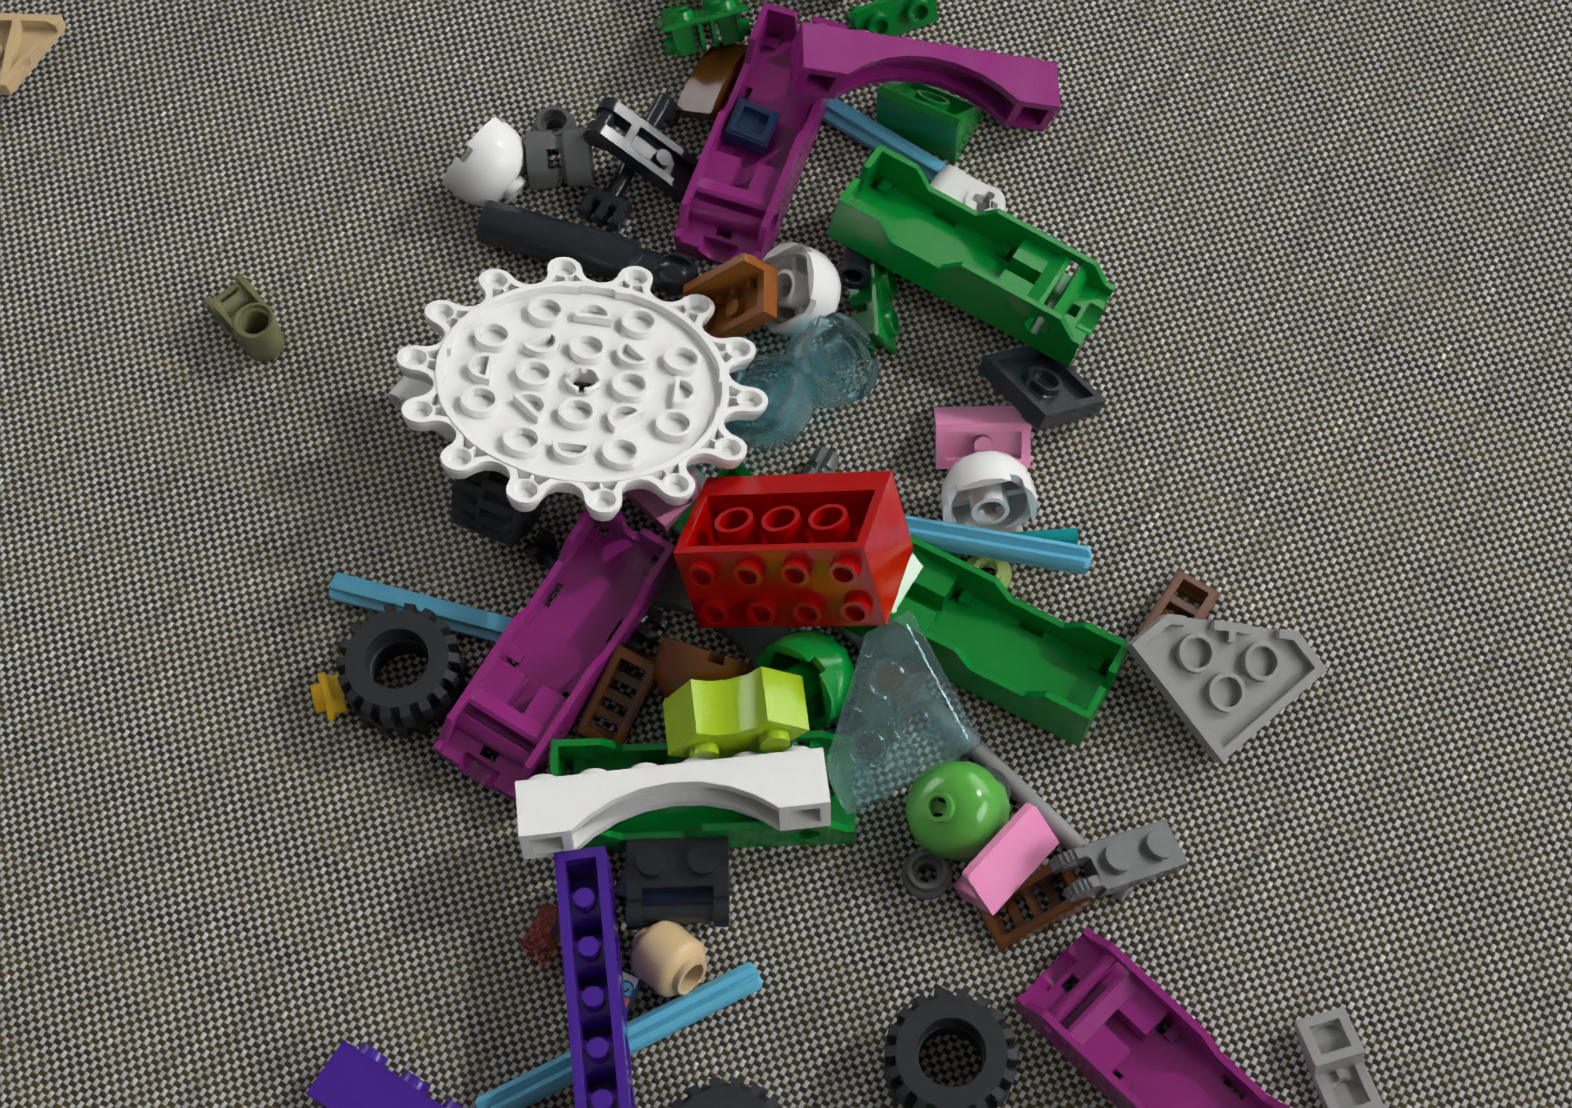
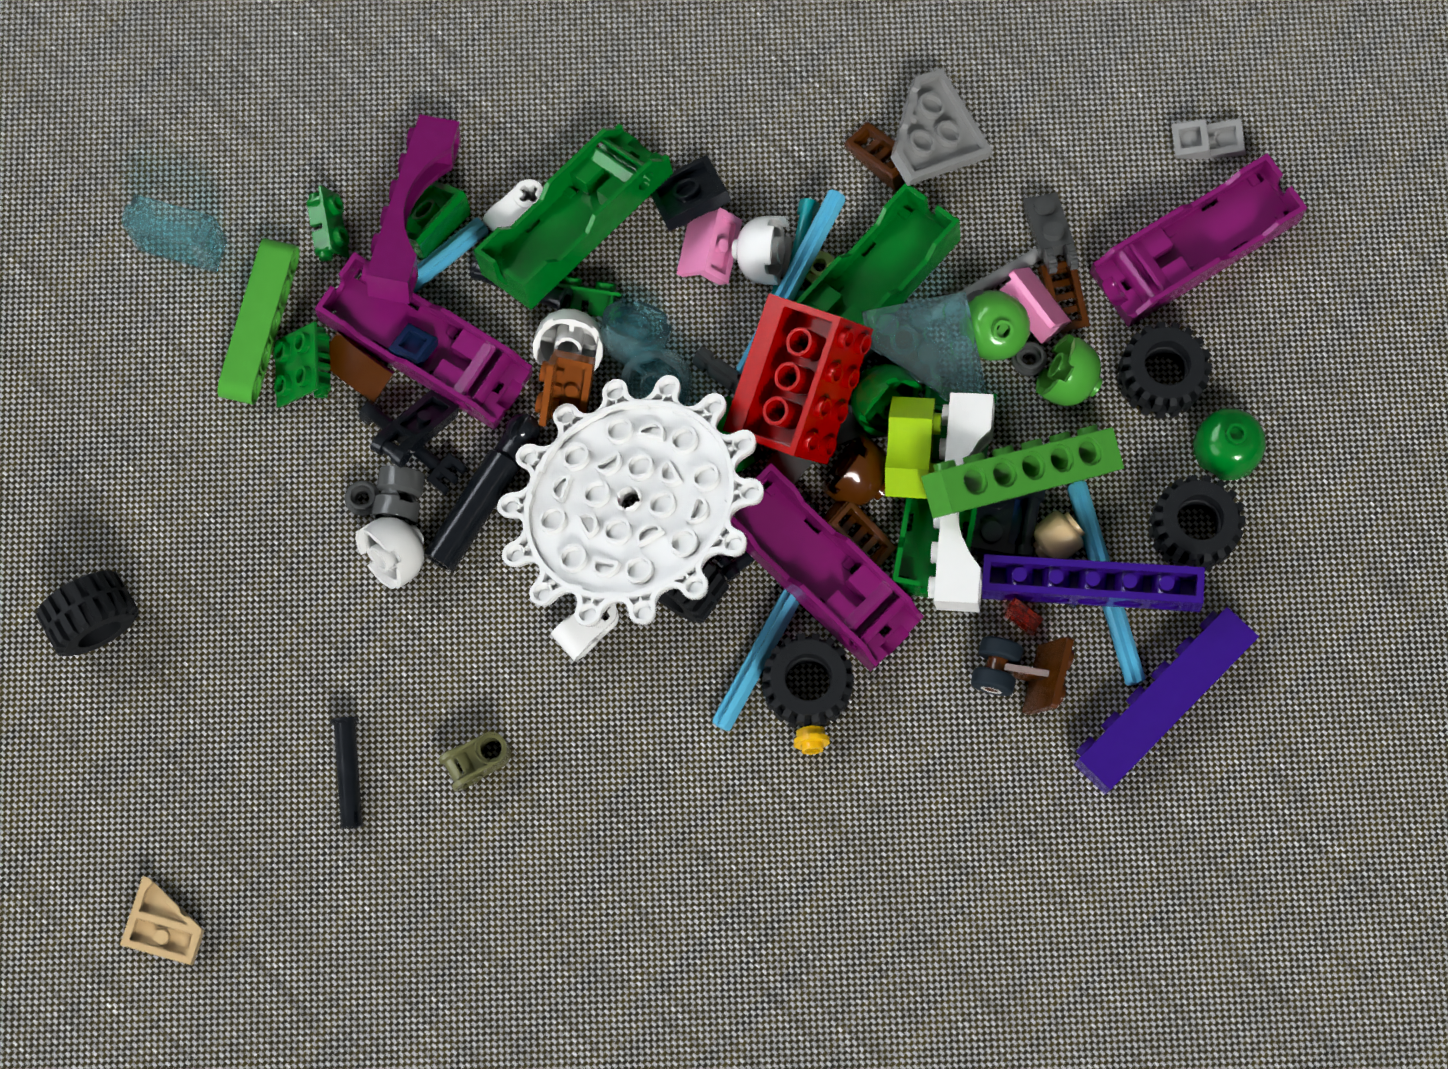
camera: 80 degrees left, 10 degrees up
(213, 189) = (347, 772): none -> black pin
(454, 917) = (1045, 679): none -> reddish brown plate
(791, 990) = (1044, 466): none -> bright green brick
(911, 930) = (1071, 374): none -> bright green cylinder

